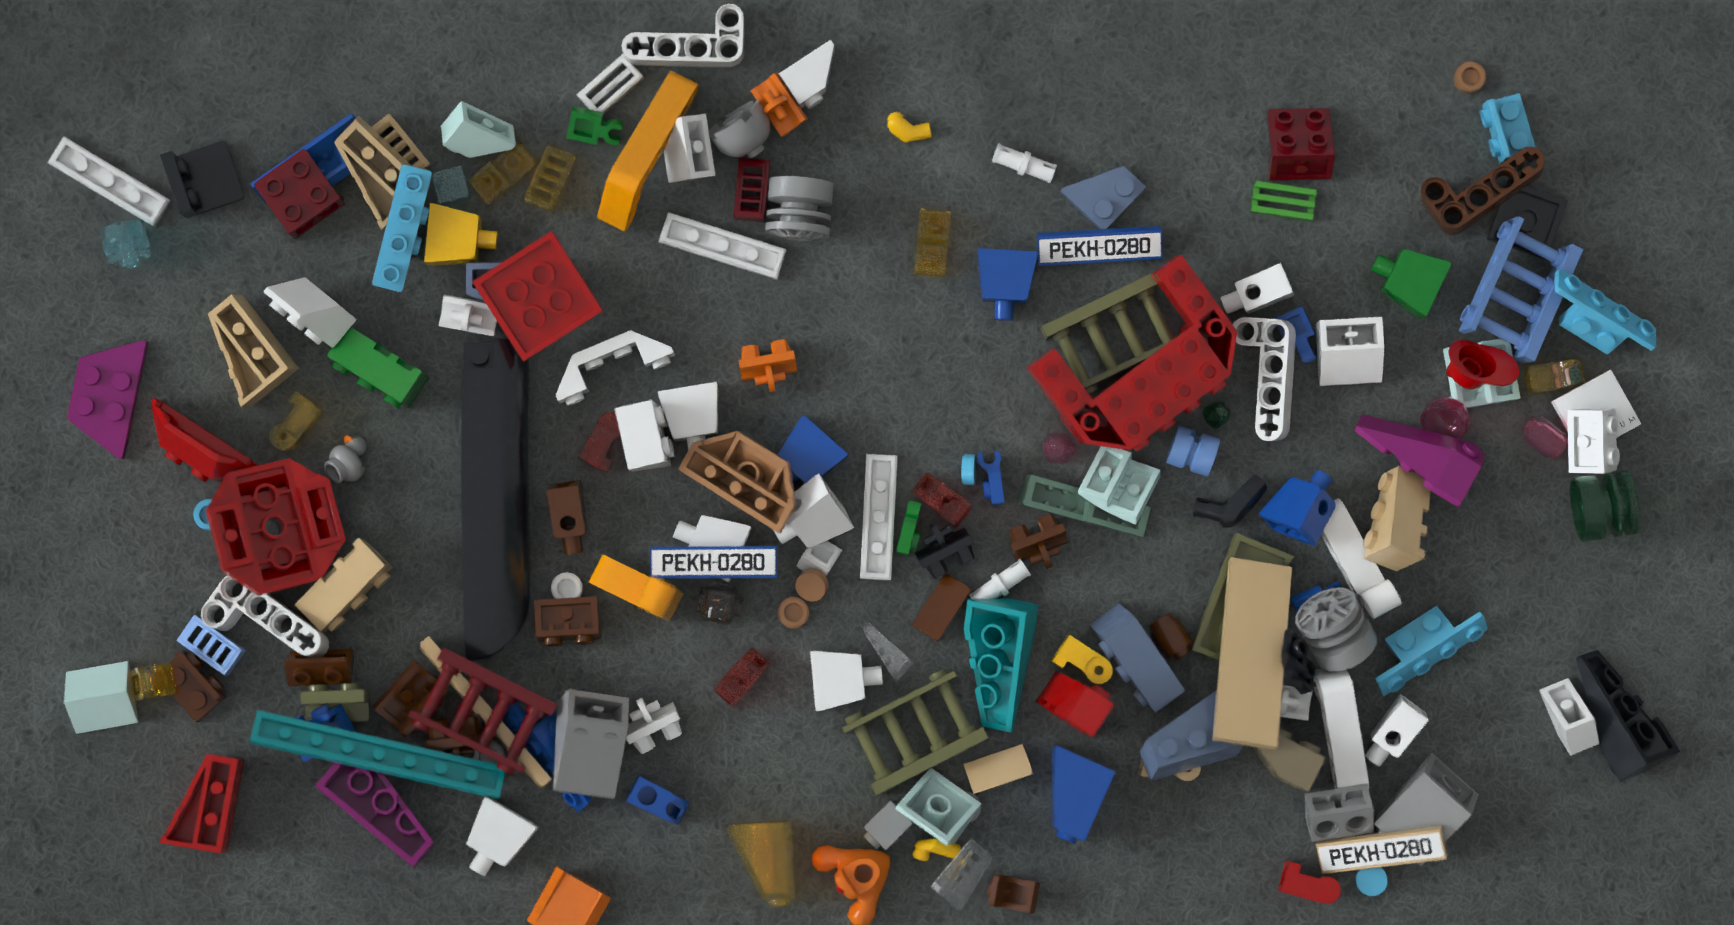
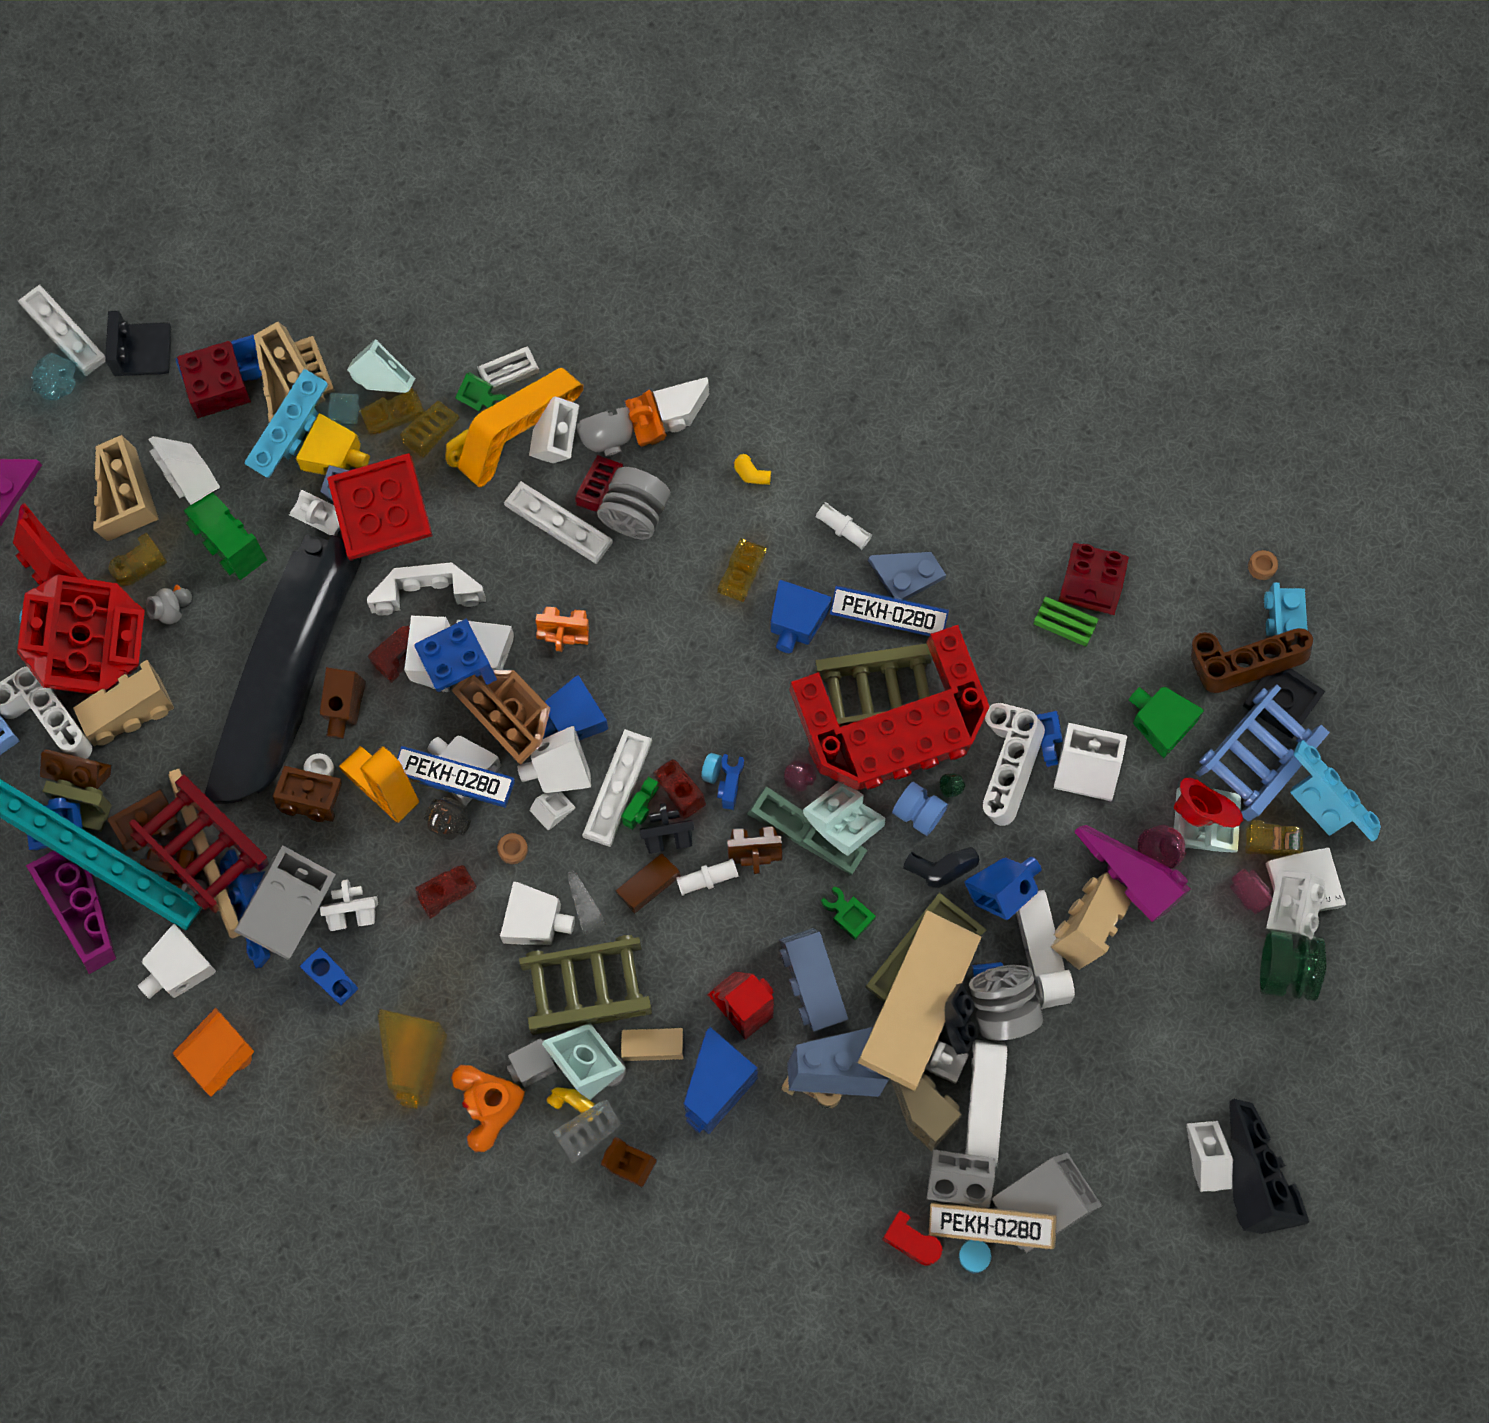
camera: 20 degrees right, 15 degrees down
(585, 194) = (454, 449): none -> yellow arm
(675, 441) = (454, 656): none -> blue bracket
(684, 42) = (548, 344): white beam -> none
(811, 585) = (536, 827): medium nougat tile -> none
(1000, 649) = (688, 936): teal wedge -> none
(1093, 665) = (761, 964): yellow leg -> none
(1156, 581) = (851, 915): none -> green plate
(1171, 636) = (850, 969): reddish brown brick -> none
(1273, 287) = (1022, 686): white torso -> none
(1401, 717) = (1050, 1109): white torso -> none
(1426, 643) = (1087, 1048): medium azure bracket -> none

